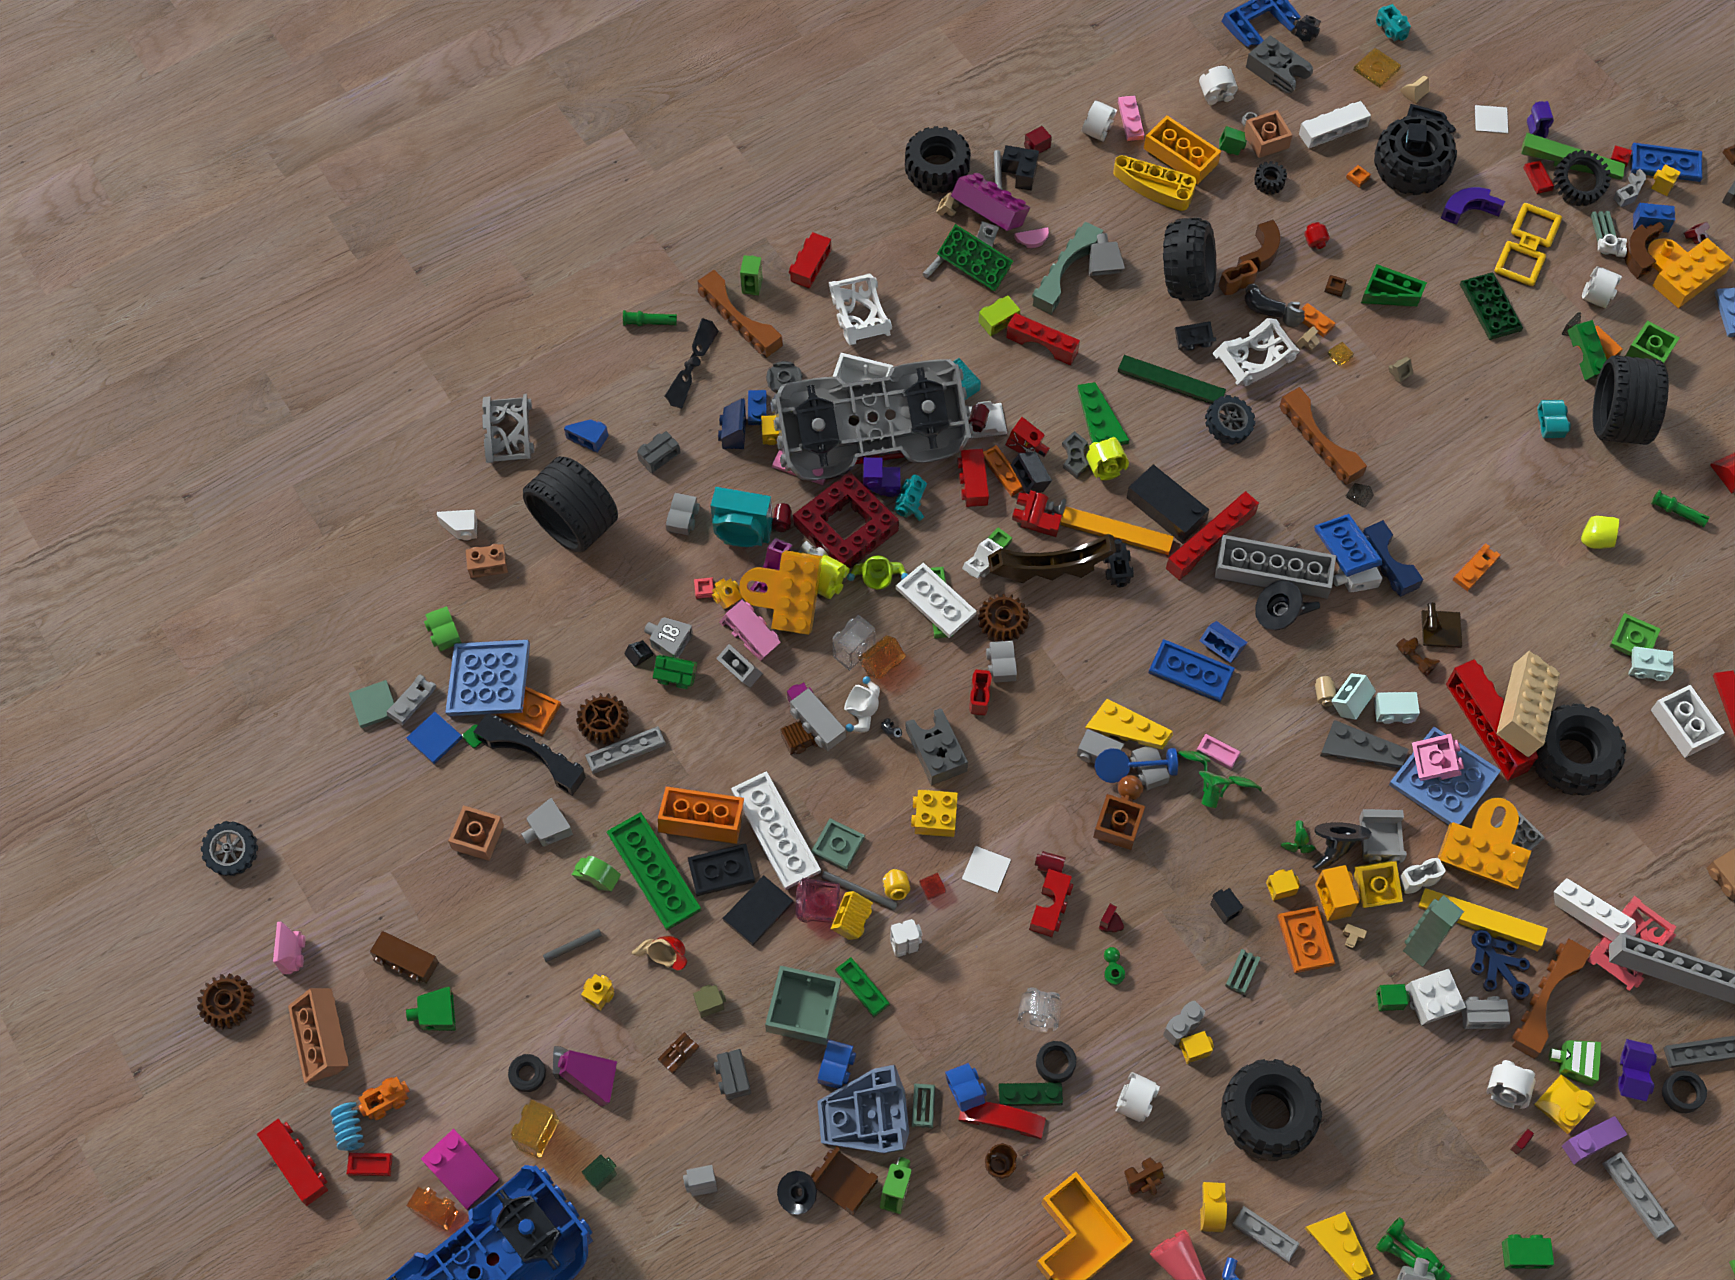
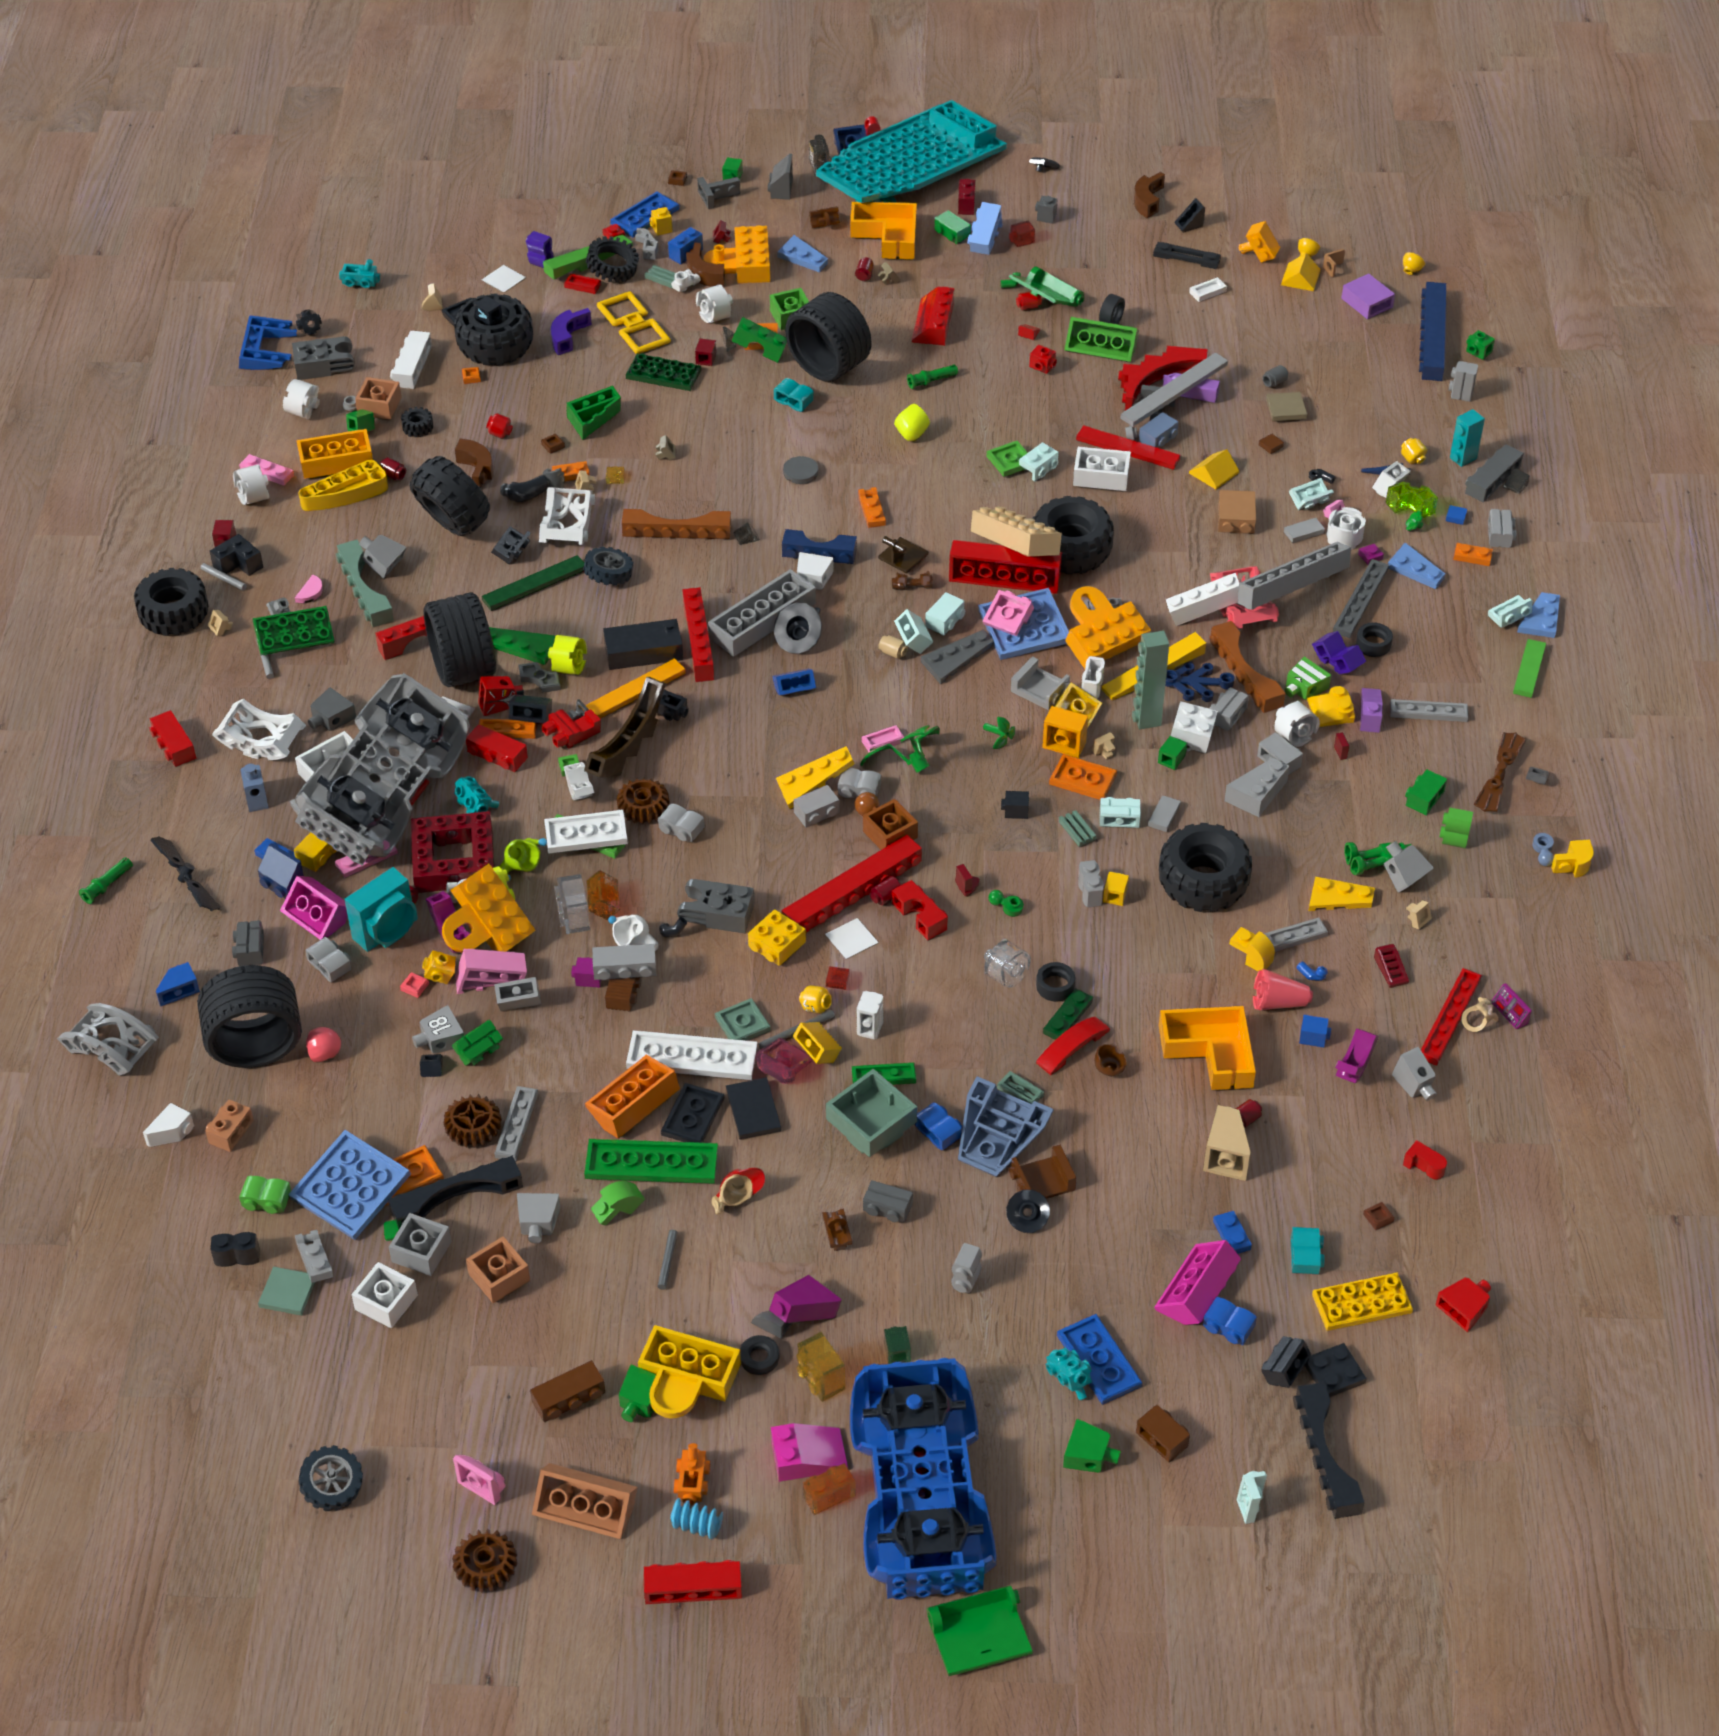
camera: 55 degrees left, 15 degrees down
(369, 1164) = (743, 1524): red tile -> none
(381, 644) = (235, 1249): none -> black brick
(403, 772) = (384, 1295): none -> white brick
(434, 737) = (363, 1256): blue tile -> none
(463, 763) = (420, 1244): none -> light grey brick
(469, 1029) = (686, 1369): none -> yellow brick
(598, 991) = (731, 1257): yellow brick -> none
(599, 567) = (322, 1044): none -> coral hair
(709, 1000) = (806, 1183): olive brick -> none
(724, 467) = (314, 907): none -> dark pink slope
(751, 275) = (146, 781): bright green brick -> none
(762, 336) = (132, 818): dark orange arch -> none
(781, 374) = (266, 821): dark grey tile -> none
(802, 346) = (253, 779): none -> sand blue torso
(881, 479) = (436, 801): dark purple brick -> none
(896, 1186) = (1078, 1139): bright green torso -> none
(920, 340) = (331, 710): none -> dark grey torso
(965, 1087) = (1030, 1048): blue brick -> none
(980, 692) = (697, 849): red brick -> none
(990, 201) = (252, 590): magenta brick -> none
(998, 315) = (361, 649): lime brick -> none
(1036, 833) = (854, 883): none -> red brick
(1043, 375) = (459, 639): none -> black tyre
(1114, 764) = (839, 799): blue piece -> none
(1136, 1097) = (1128, 943): white brick -> none
(1145, 1180) = (1198, 979): reddish brown hips -> none
(1191, 670) = (799, 715): blue tile -> none
(1204, 198) = (393, 468): none -> dark red brick
(1238, 277) = (490, 485): dark orange brick -> none
(1282, 884) = (1028, 762): yellow brick -> none
(1285, 996) = (1119, 812): none -> light aqua brick
(1318, 1034) = (1164, 813): none -> light grey tile
(1339, 840) = (1024, 707): black piece -> none
(1349, 545) = (778, 560): blue tile -> none
(1377, 67) = (386, 309): clear yellow tile -> none
(1410, 1098) = (1257, 787): none -> light grey wedge
(1467, 1092) = (1281, 750): none -> light grey brick
(1471, 484) = (800, 469): none -> dark grey tile
(1541, 320) = (705, 352): none -> dark red brick

